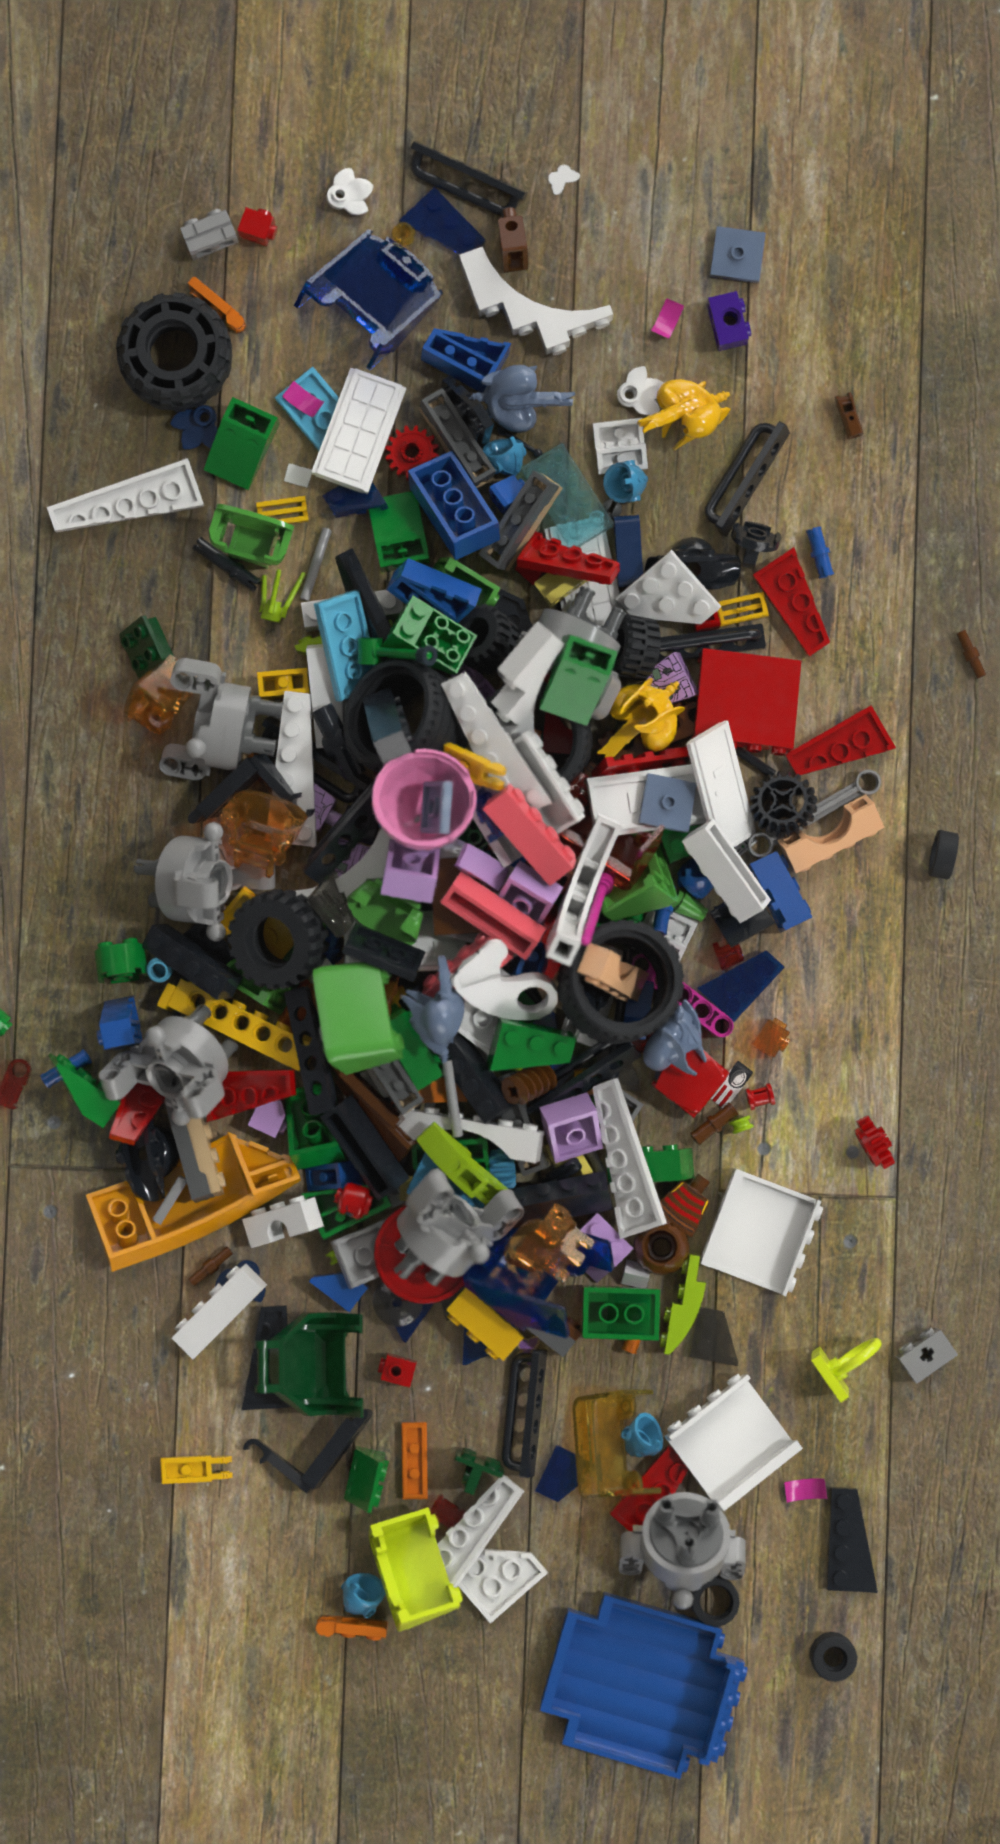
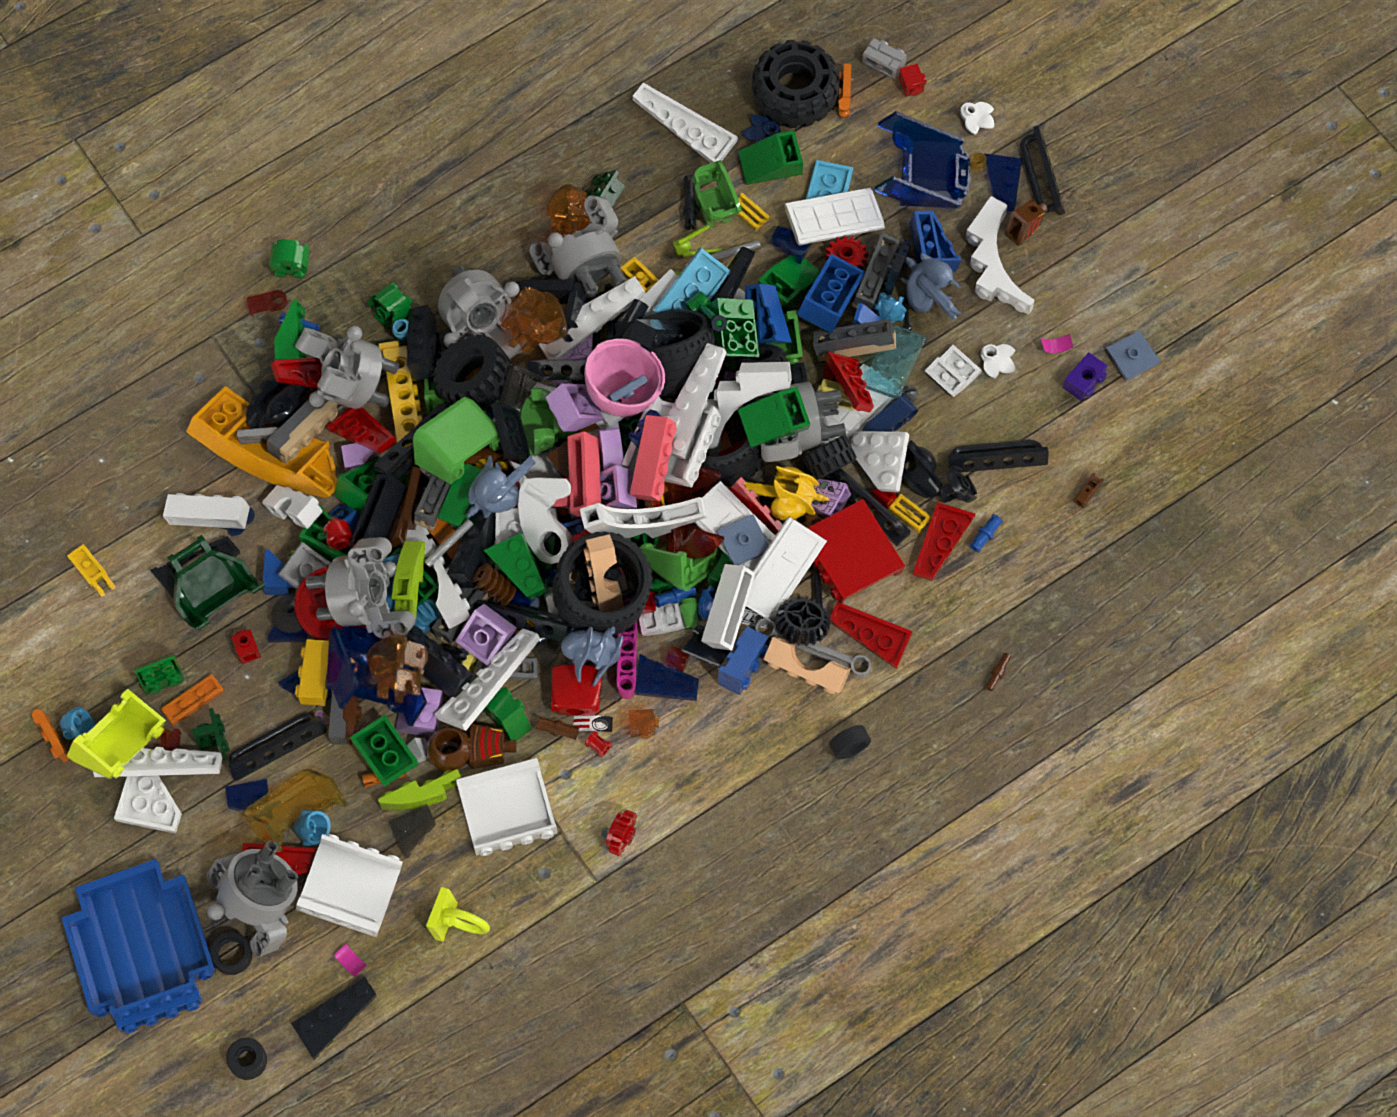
camera: 55 degrees right, 20 degrees down
(119, 1024) = (338, 322): blue wedge -> none
(210, 1266) = (232, 490): reddish brown bar -> none
(298, 475) = (778, 206): white sticker -> none
(302, 399) = (827, 173): dark pink sticker -> none
(325, 1460) = (157, 641): black hinge -> none
(478, 767) = (670, 397): yellow hinge -> none
(563, 175) = (1094, 226): white sticker -> none
(603, 888) = (659, 541): dark pink piece -> none
(625, 482) = (932, 387): dark azure helmet -> none
(690, 402) = (1010, 390): yellow hair -> none
(741, 1124) = (570, 745): lime bush -> none
(939, 1354) = (511, 981): light grey brick -> none

